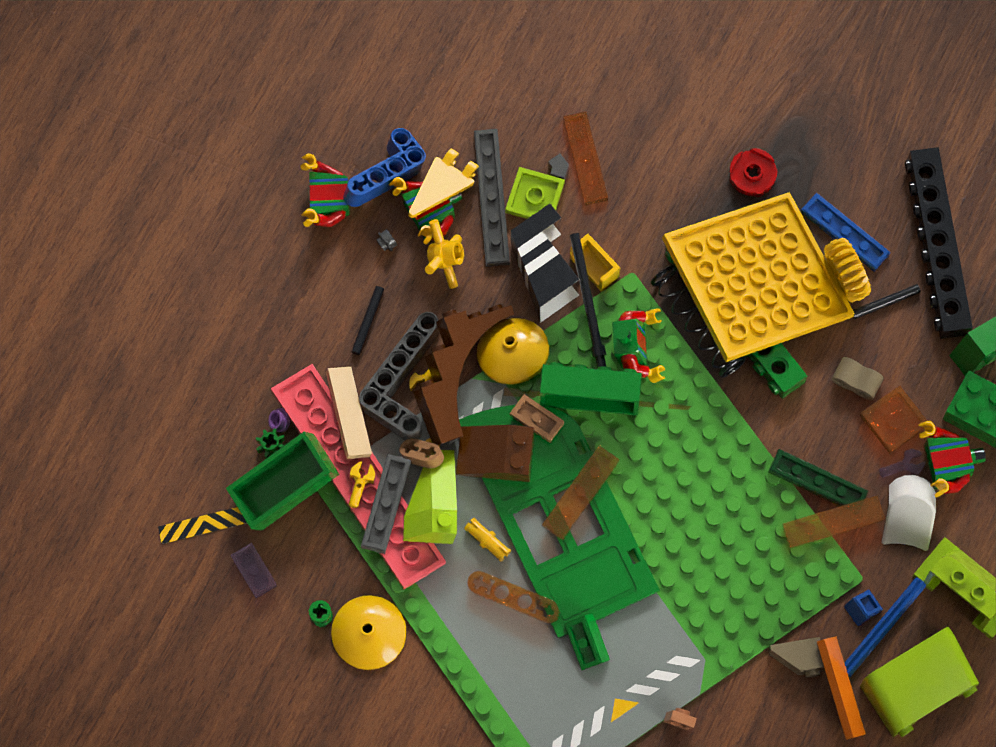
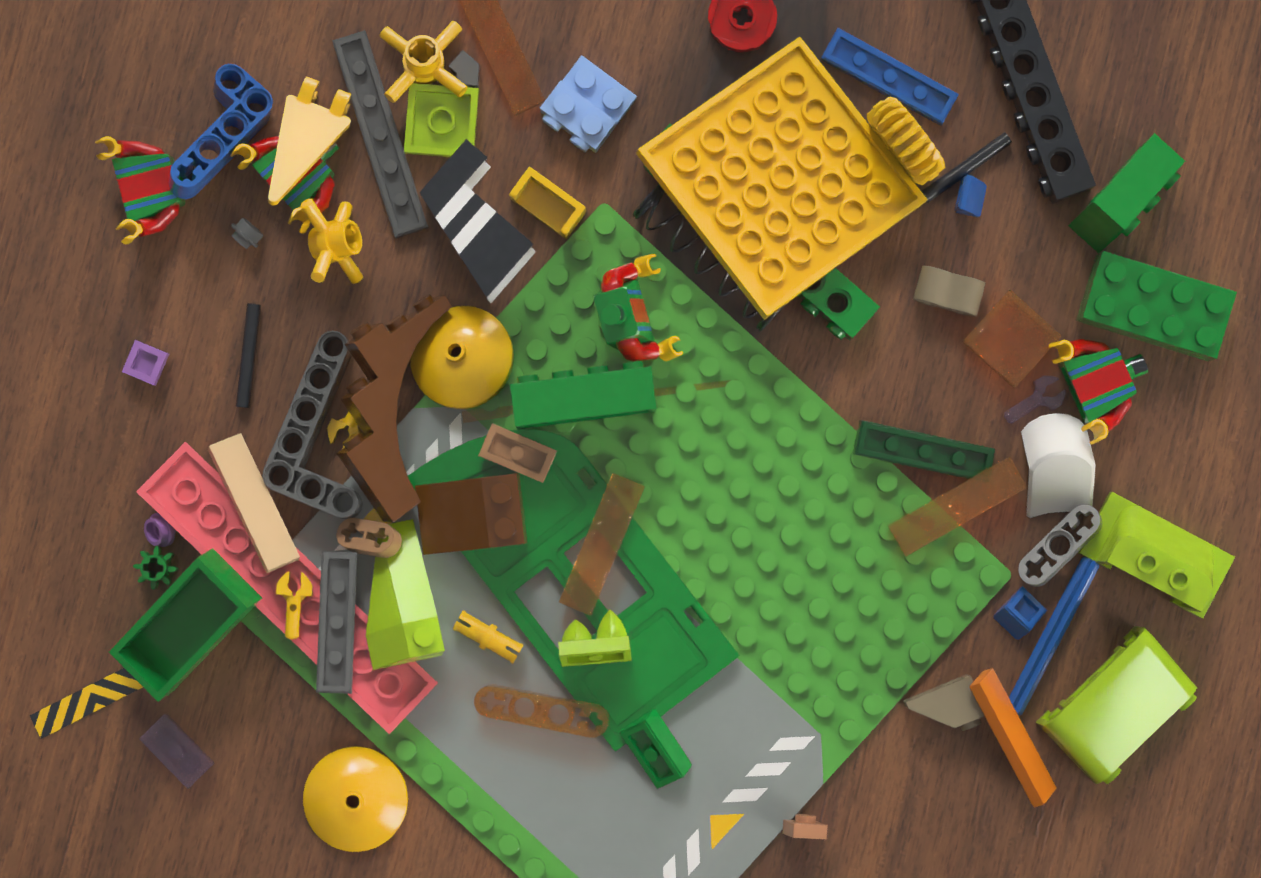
camera: 15 degrees left, 15 degrees up
(297, 309) = (145, 362): none -> medium lavender plate
(315, 609) = (278, 800): green bush -> none
(531, 154) = (428, 71): none -> yellow bar
(568, 562) = (608, 647): none -> lime tile
(598, 350) = (581, 332): black bar -> none
(635, 207) = (587, 105): none -> light blue plate
(885, 320) = (970, 196): none -> blue slope
(920, 561) = (1072, 520): none -> light grey beam

